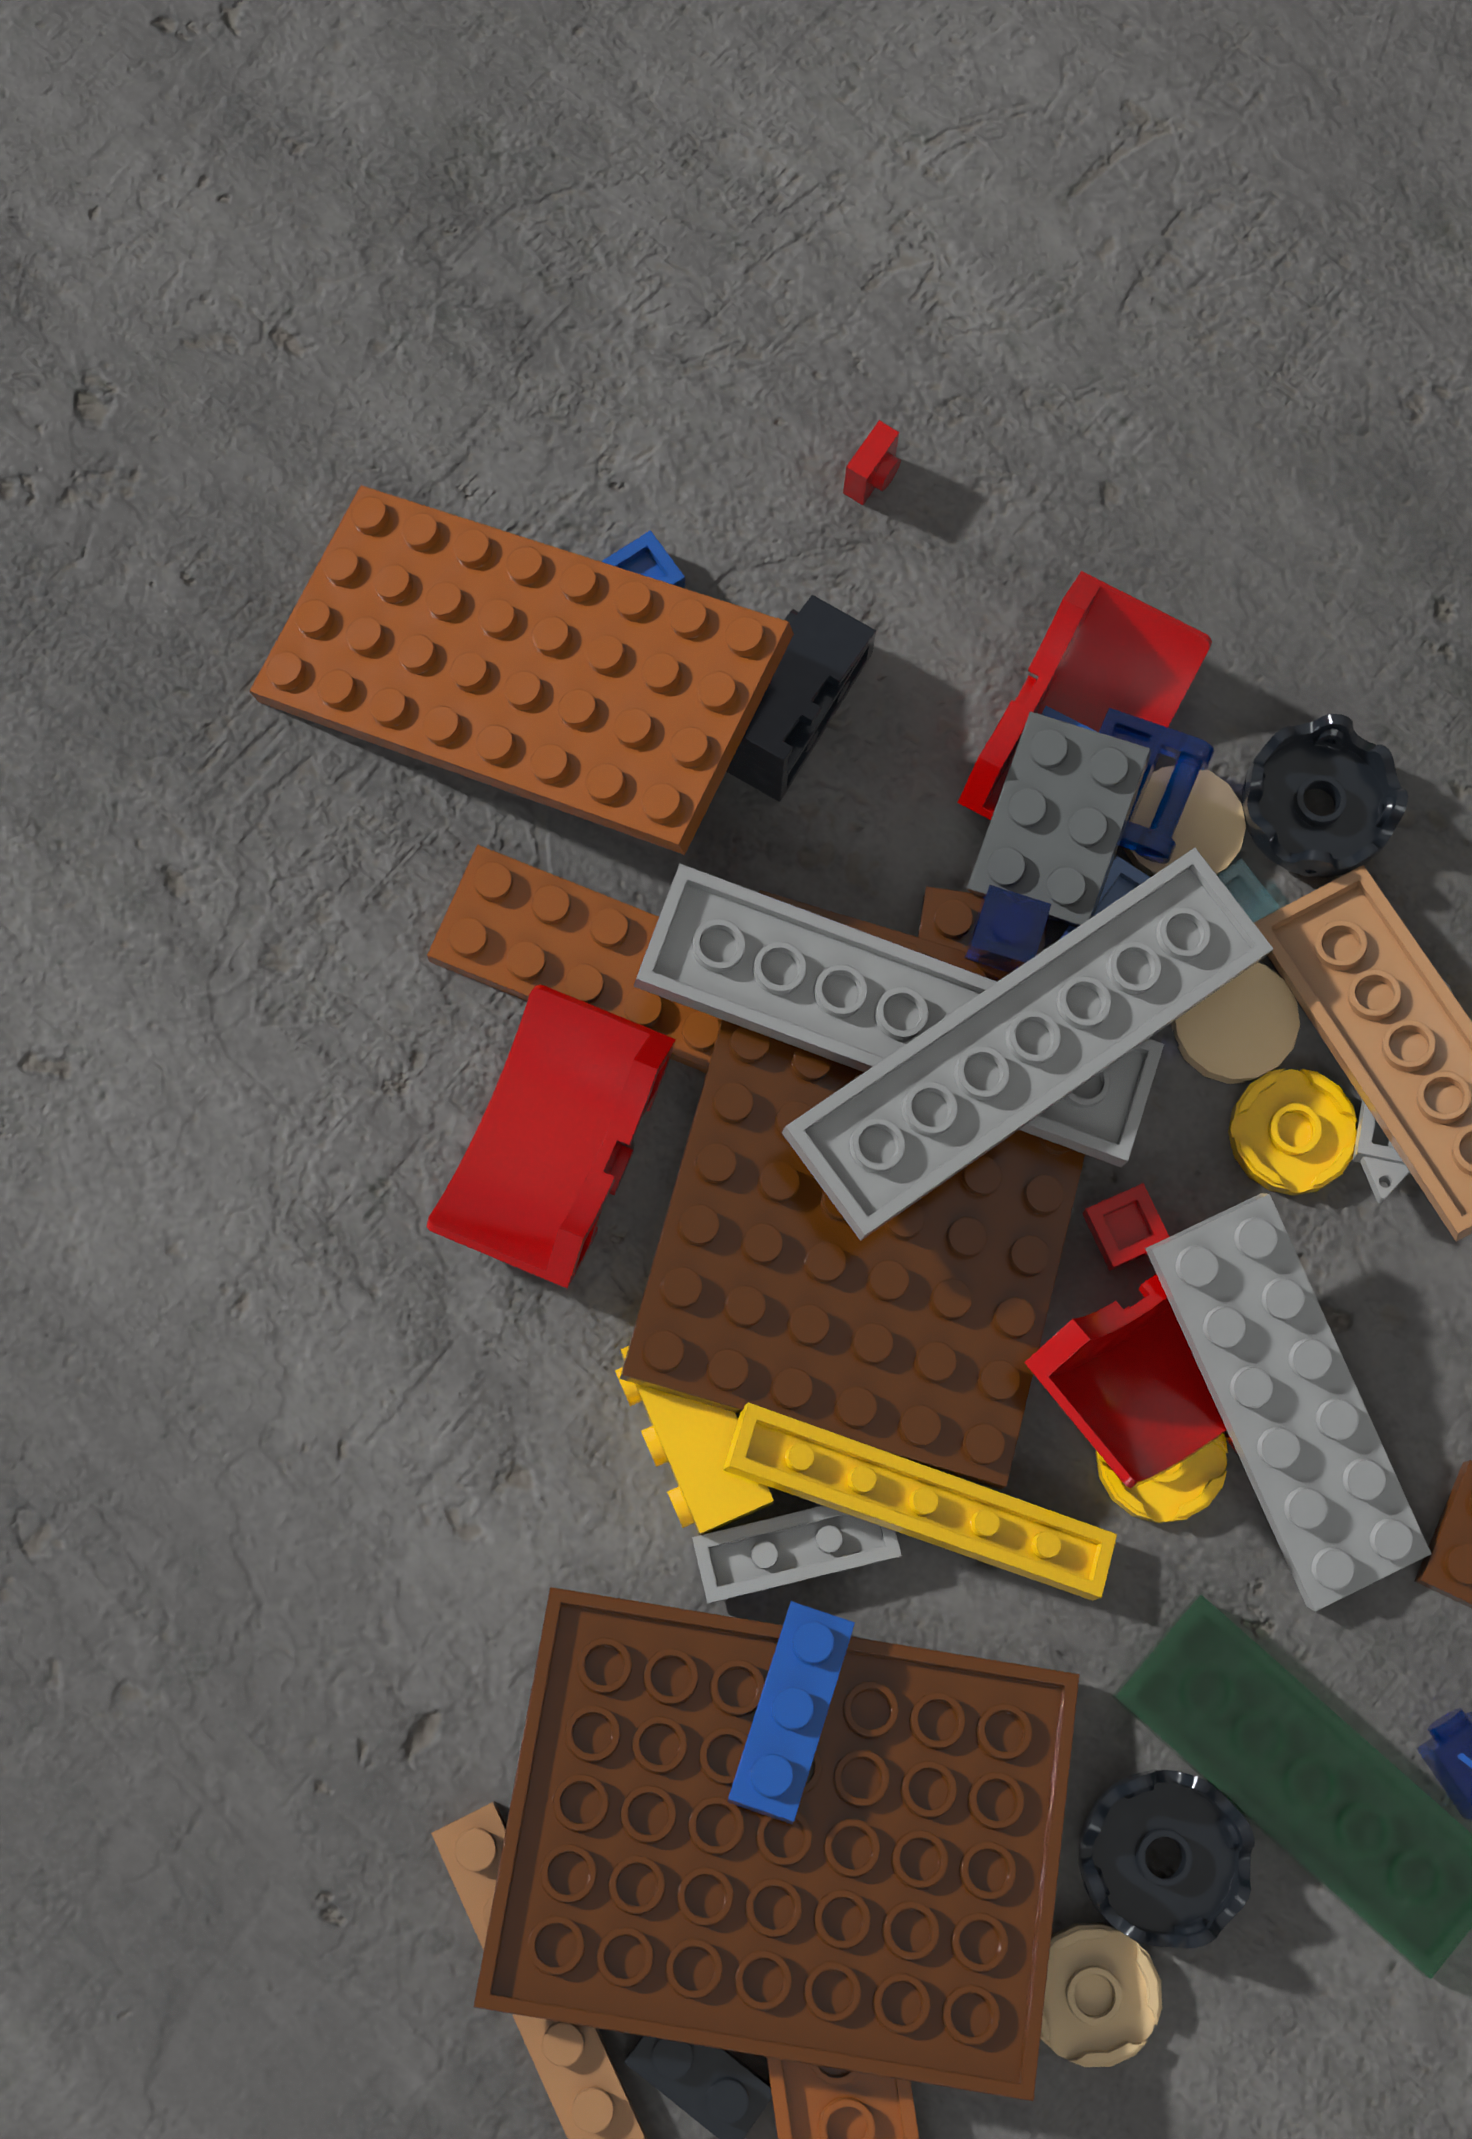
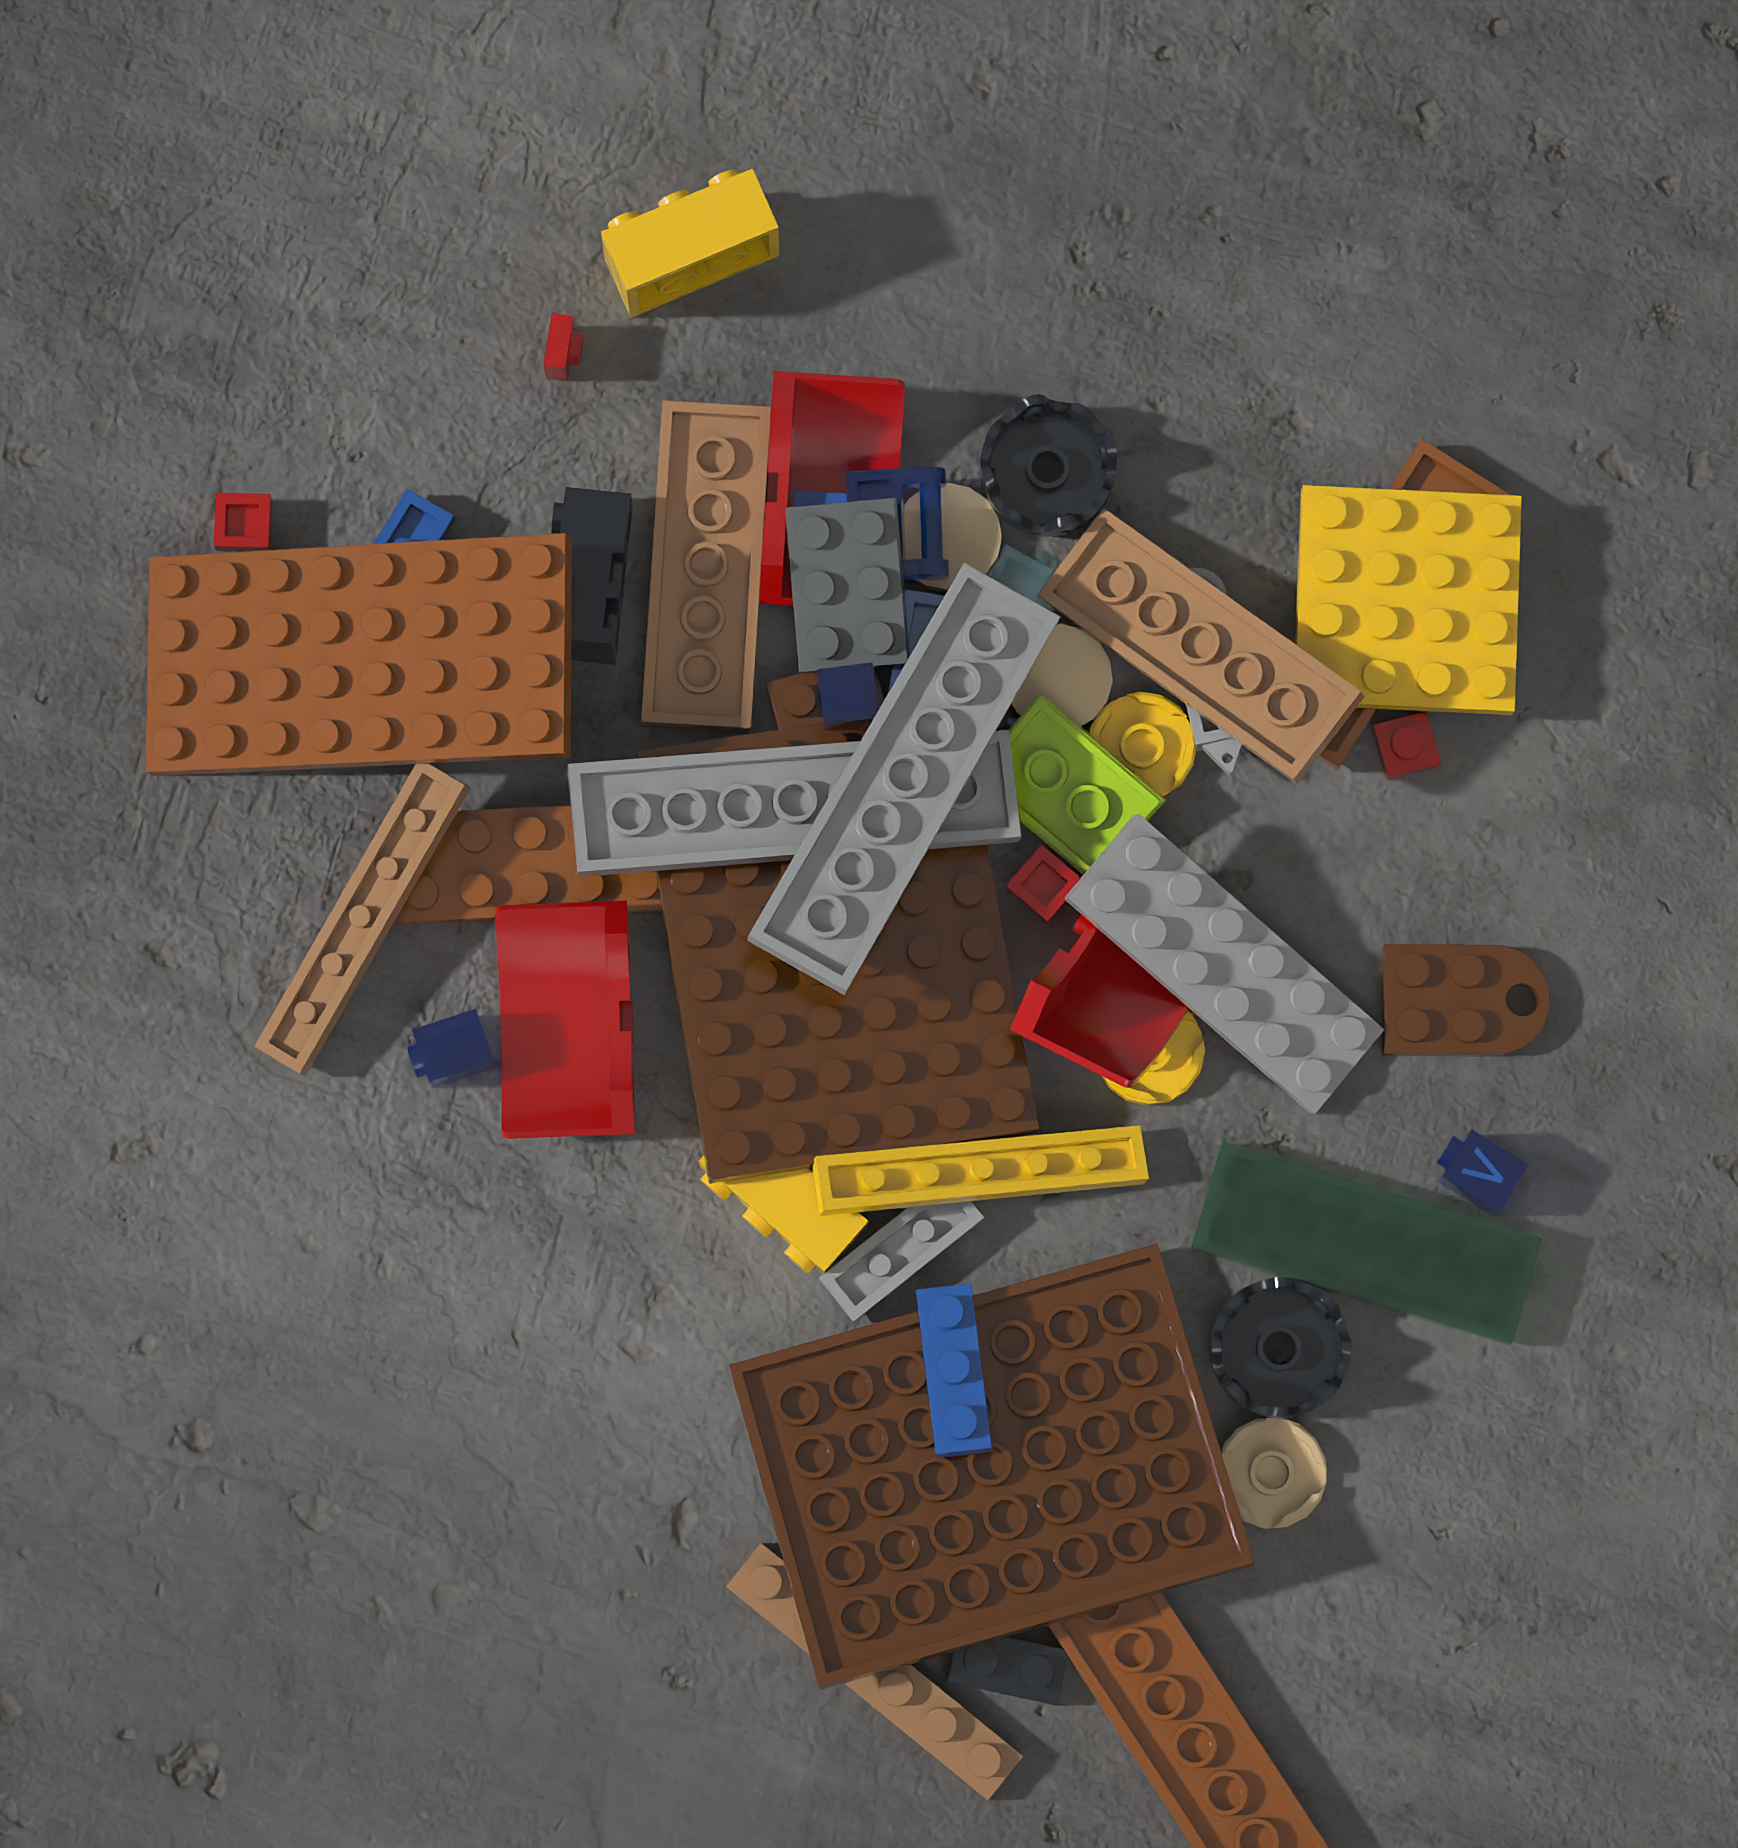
camera: 25 degrees left, 5 degrees up
(392, 932) = (362, 917): none -> medium nougat plate
(419, 1111) = (451, 1049): none -> clear blue brick
(471, 489) = (242, 522): none -> red plate
(917, 744) = (706, 566): none -> medium nougat plate
(1054, 412) = (690, 241): none -> yellow brick
(1203, 1136) = (1072, 785): none -> lime tile

